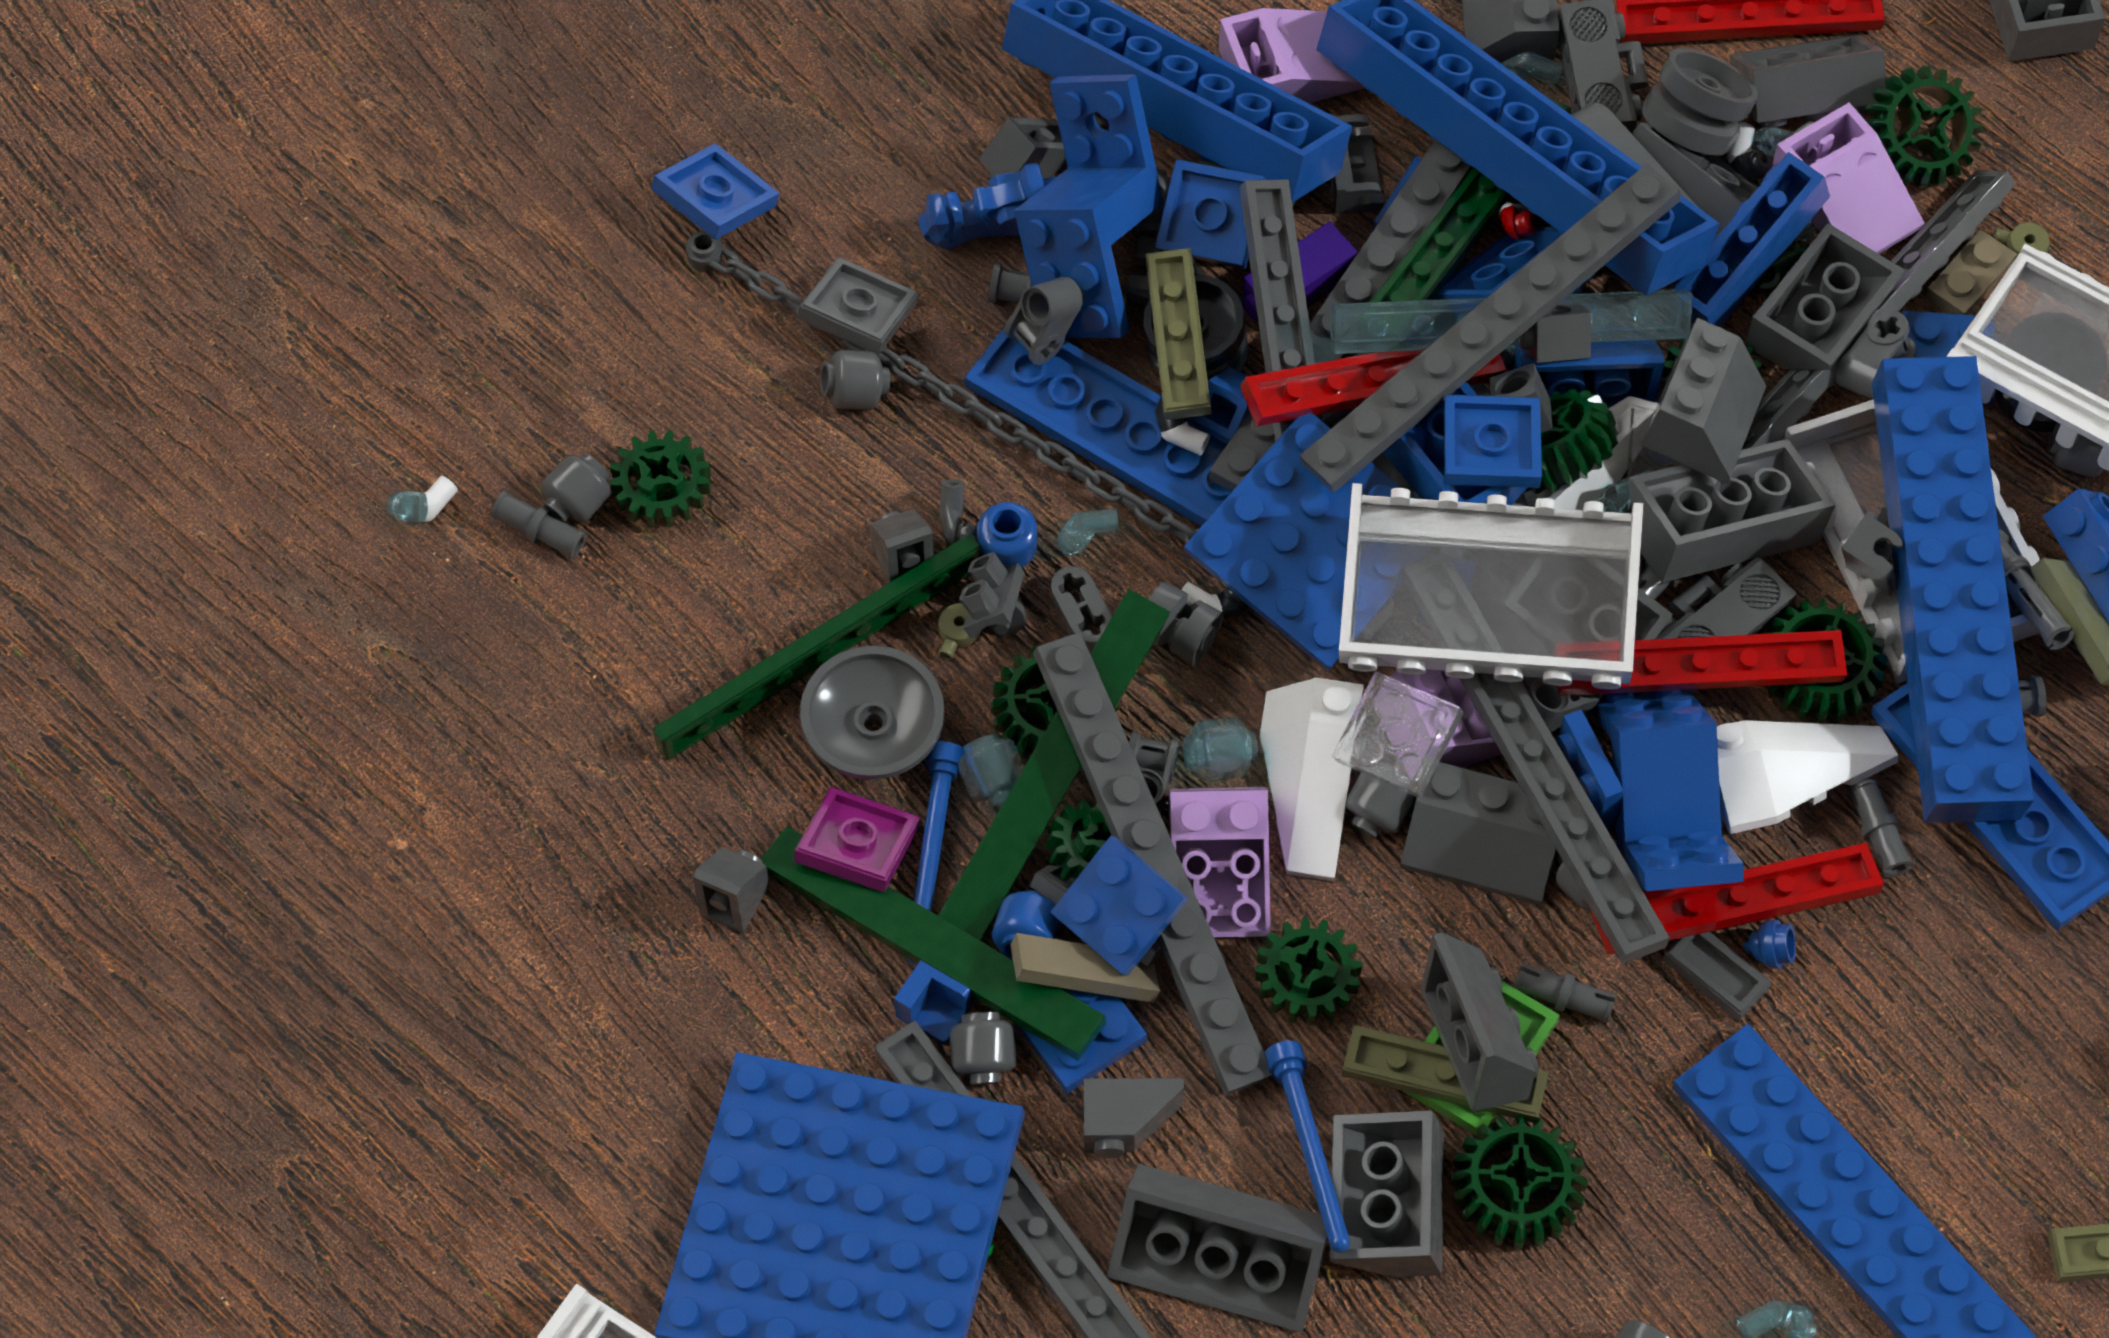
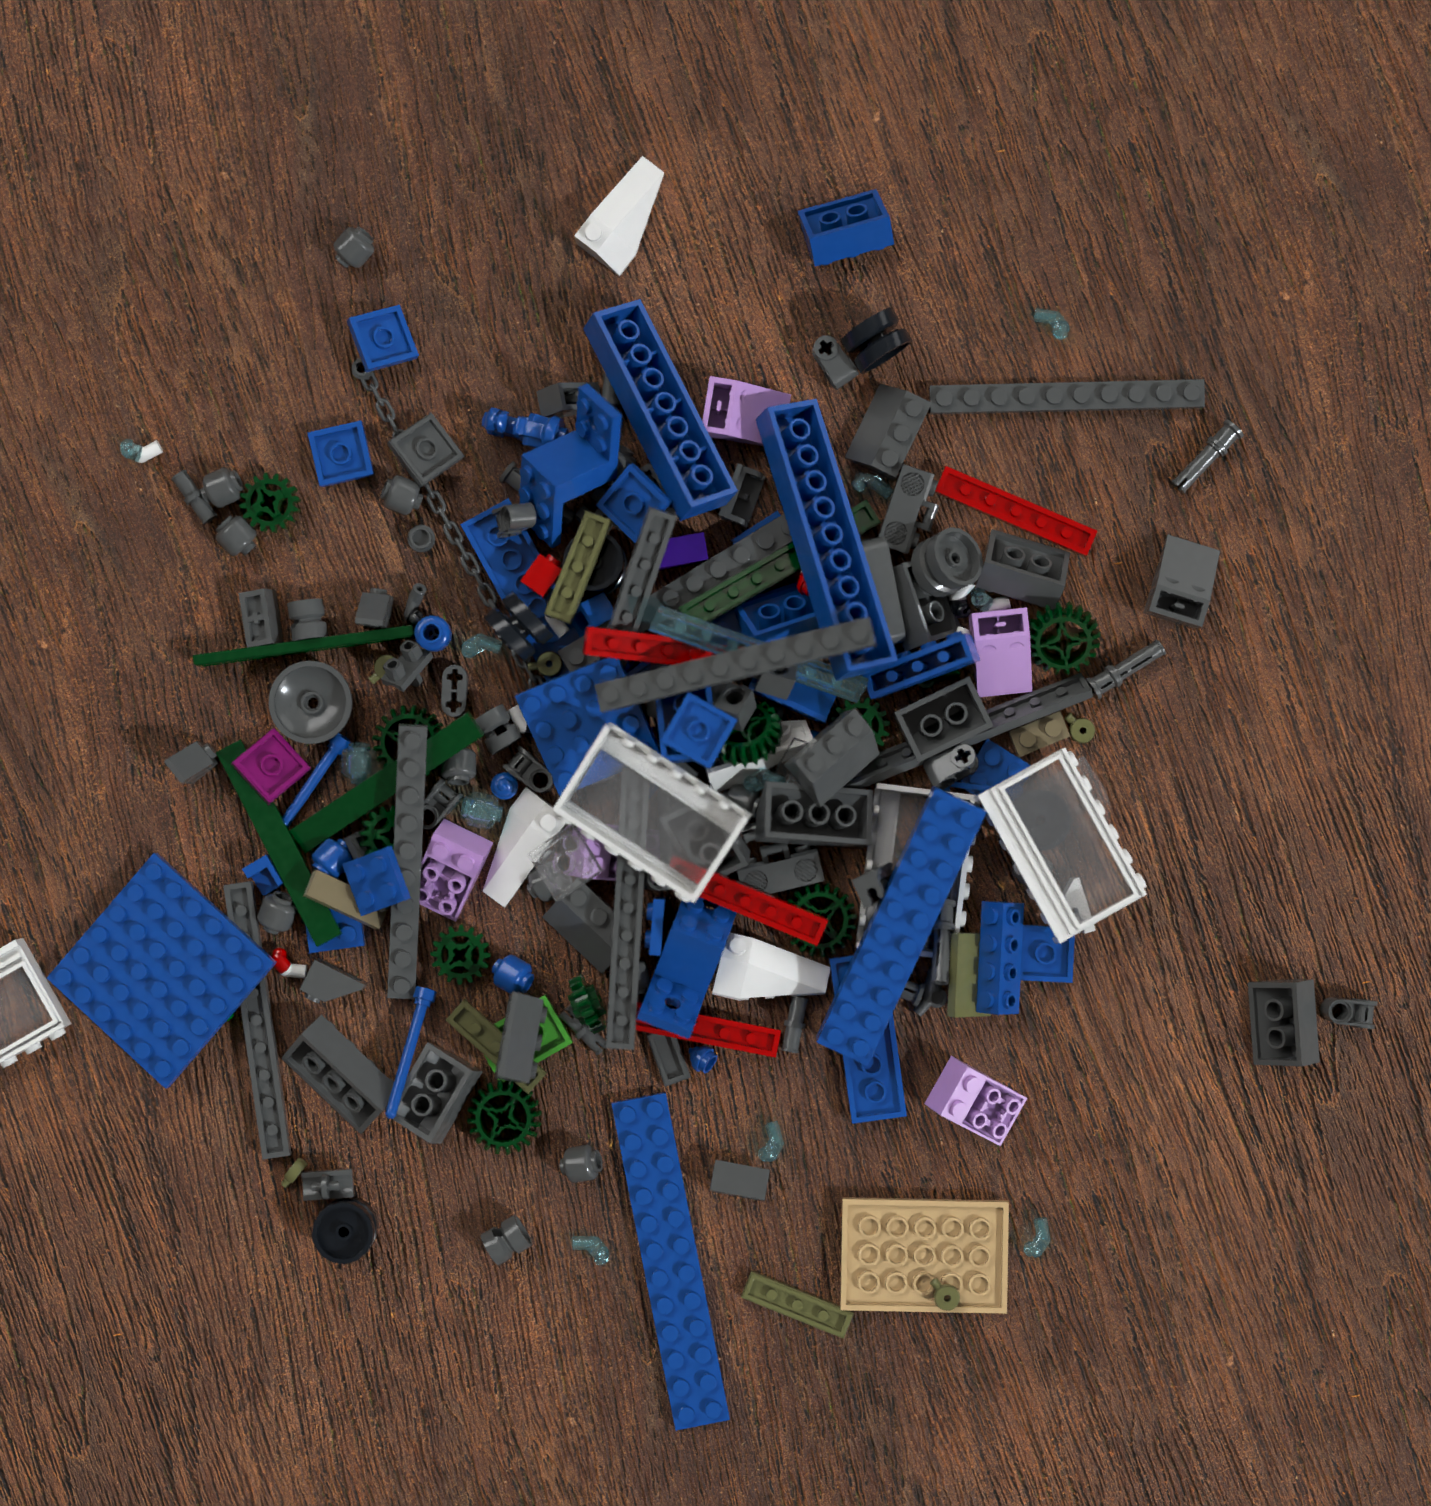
camera: 25 degrees right, 25 degrees up
(609, 100) = (354, 247): none -> dark grey head
(631, 544) = (235, 535): none -> dark grey head
(724, 632) = (261, 617): none -> dark grey hinge
(732, 369) = (341, 453): none -> blue plate
(799, 600) = (307, 619): none -> dark grey wheel
(915, 428) = (421, 538): none -> dark grey plate
(1041, 1131) = (285, 967): none -> arm
(1128, 379) = (542, 575): none -> red brick
(1136, 447) = (518, 626): none -> black wheel
(1150, 703) = (459, 768): none -> dark grey head
(1195, 498) = (541, 662): none -> olive piece
(1234, 699) = (504, 785): none -> blue plate
(1259, 660) = (528, 770): none -> dark grey piece
(1400, 960) = (512, 974): none -> blue head
(1550, 936) = (587, 1004): none -> dark green gear
(1683, 1192) = (581, 1163): none -> dark grey head
(1945, 1097) = (739, 1180): none -> dark grey hinge
(1962, 1018) = (774, 1144): none -> clear light blue arm
(2025, 150) = (1114, 675): none -> dark grey pin
(2061, 689) = (932, 995): none -> dark grey animal

